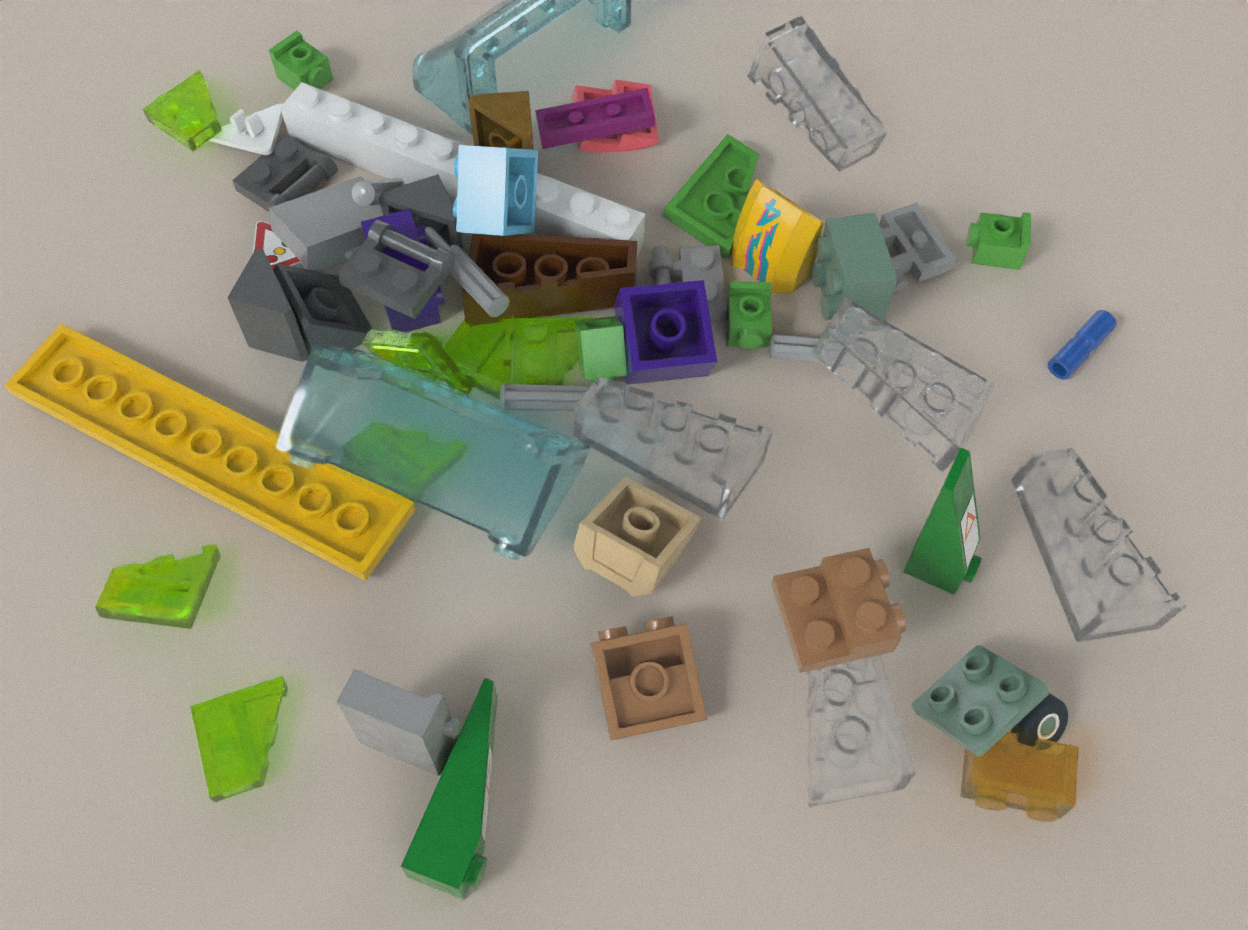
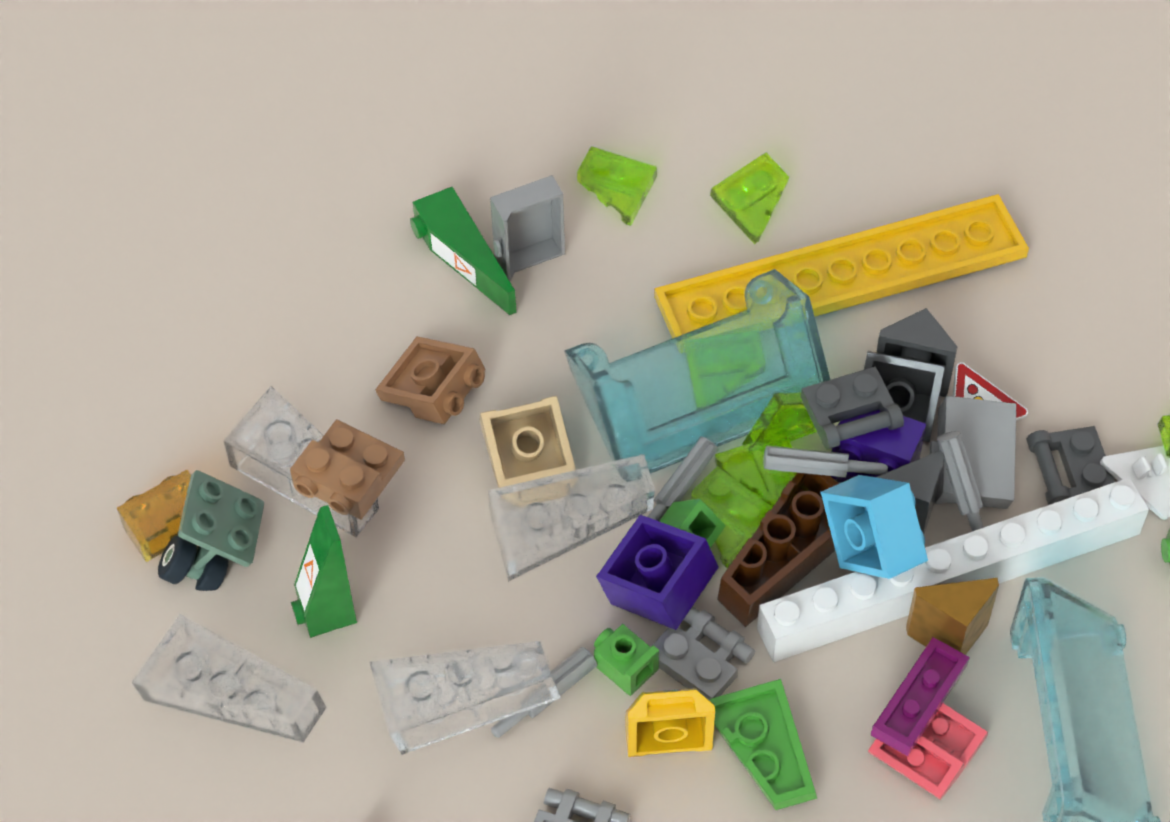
camera: 135 degrees right, 5 degrees down
(854, 265) = (579, 739): sand green brick -> none

